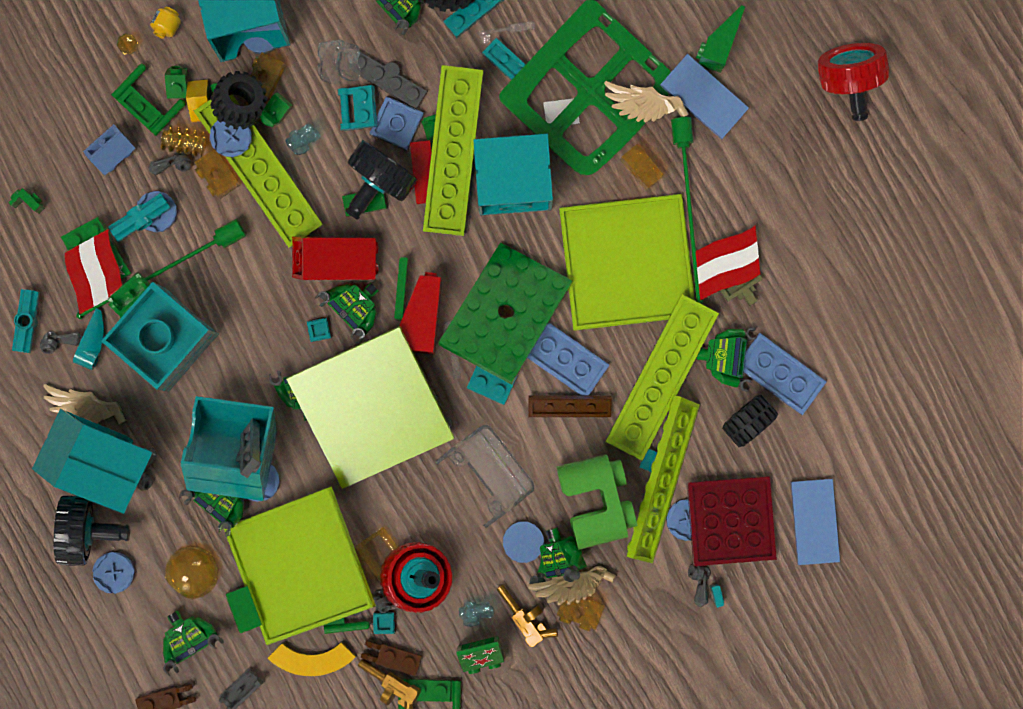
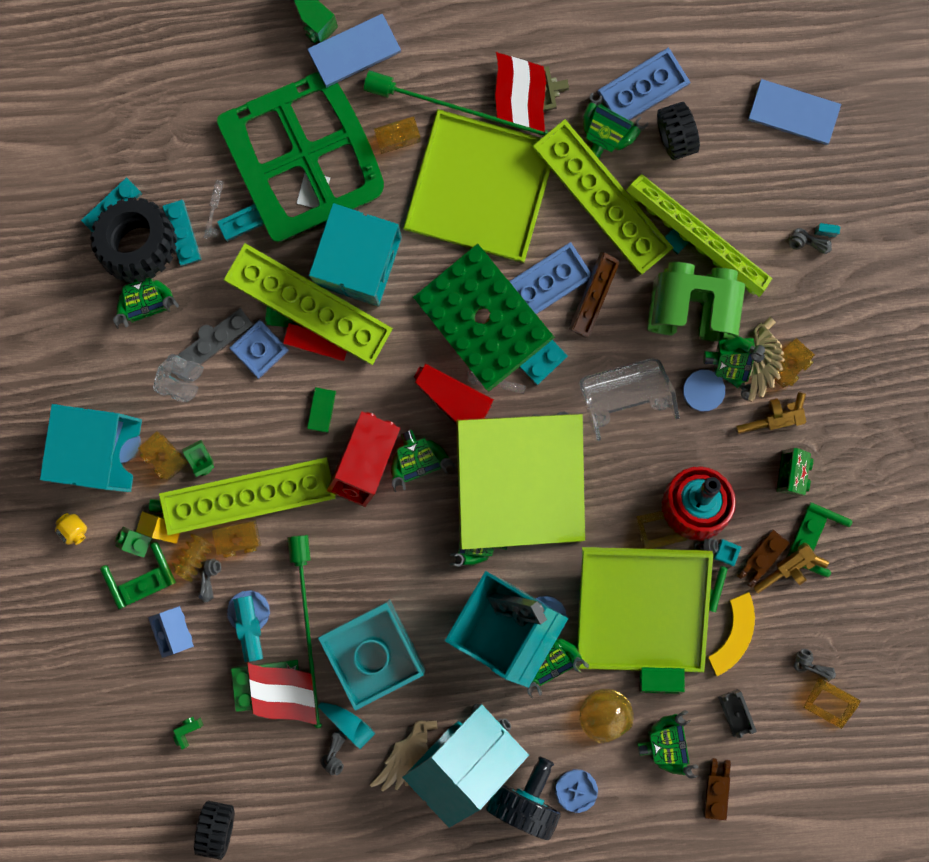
camera: 65 degrees left, 0 degrees up
(27, 307) = (315, 786): teal piece -> none
(127, 44) = (75, 574): clear yellow tile -> none
(127, 294) = (318, 668): green hinge -> none
(230, 141) = (207, 509): medium blue tile -> none
(245, 87) = (169, 473): black tyre -> none
(299, 139) = (237, 447): clear light blue plate -> none
(318, 330) = (425, 502): teal tile -> none
(364, 108) = (231, 373): teal plate -> none
(380, 175) = (303, 381): black wheel -> none
(401, 288) = (418, 407): green tile -> none
(472, 613) = (752, 465): clear light blue plate -> none
(644, 102) = (337, 108): tan animal -> none
(678, 520) = (744, 229): medium blue tile -> none
(731, 521) = (763, 188): dark red plate -> none

